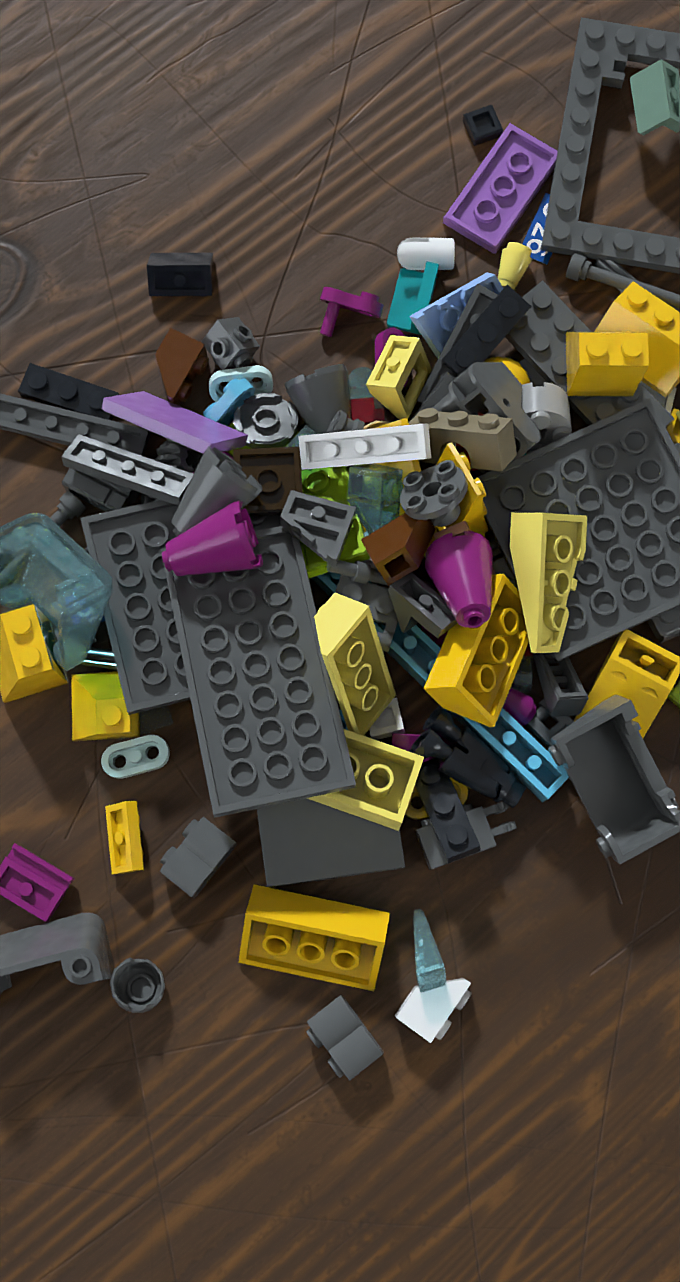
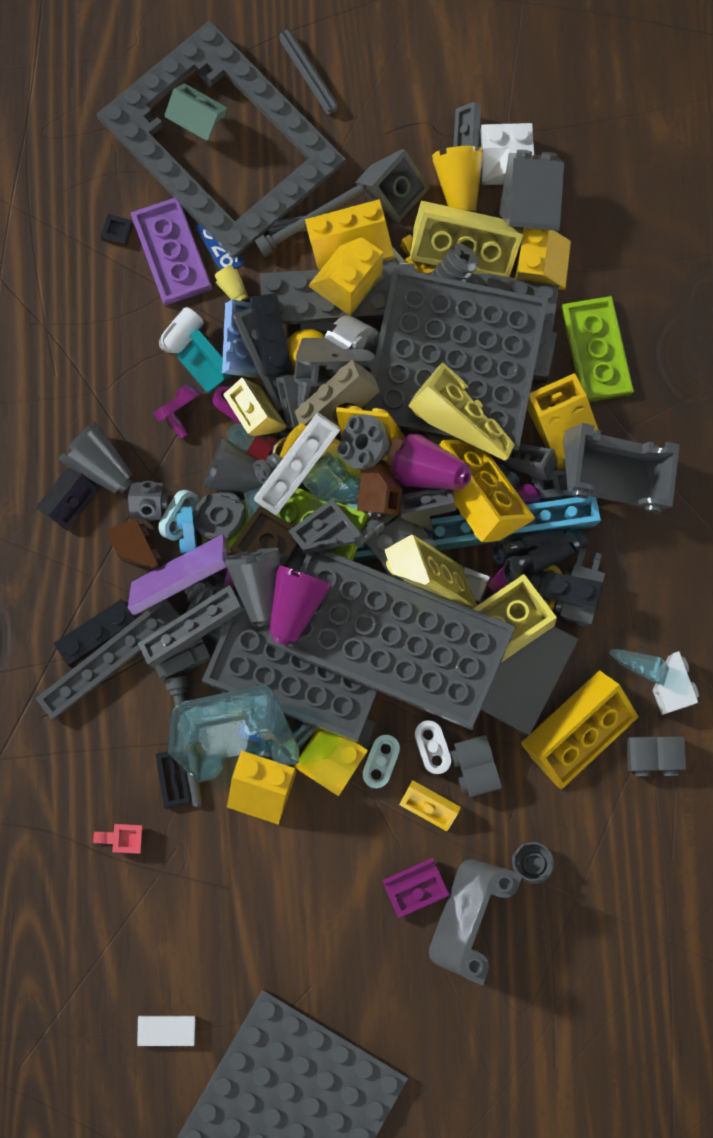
camera: 60 degrees left, 0 degrees up
(184, 796) = (434, 747): none -> white plate
(236, 268) = (97, 460): none -> dark grey cone

